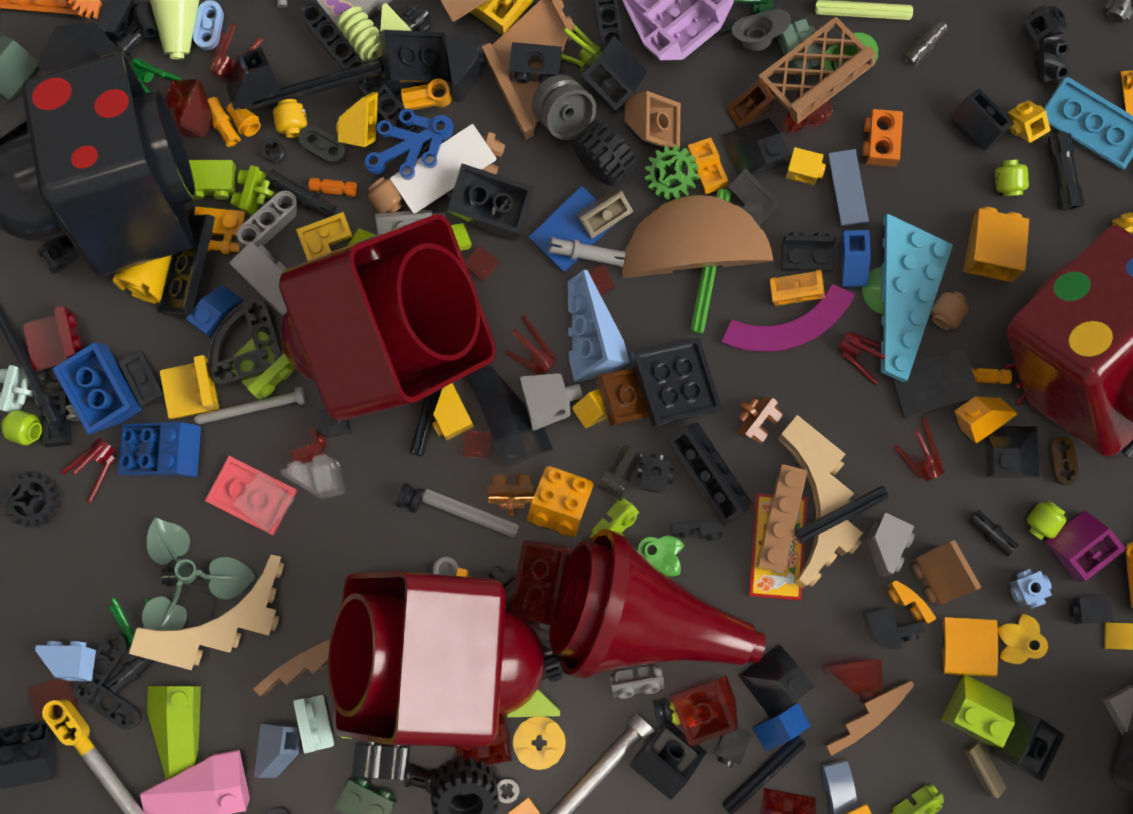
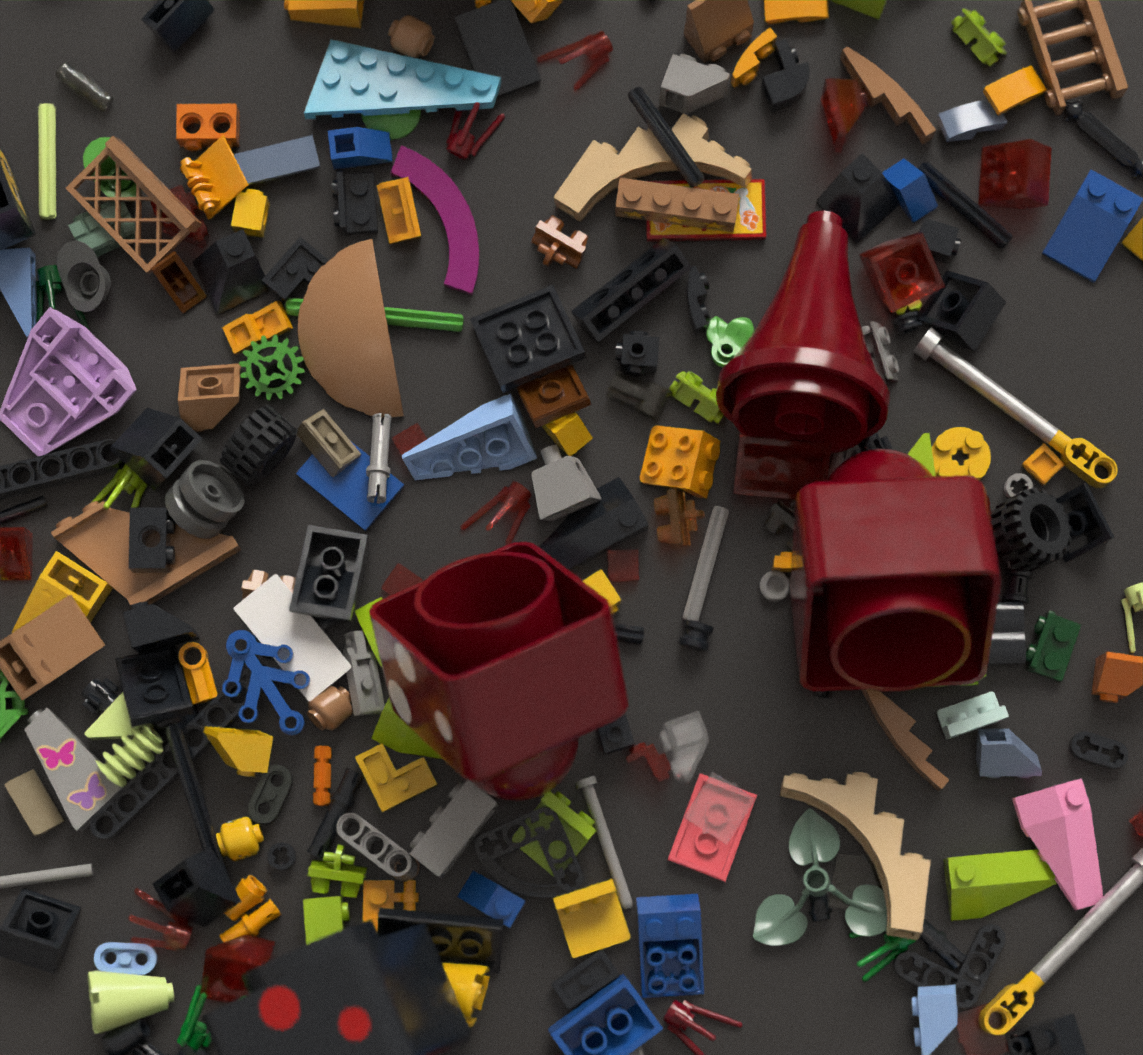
camera: 100 degrees left, 0 degrees up
(836, 136) = (214, 177): none -> light orange hinge

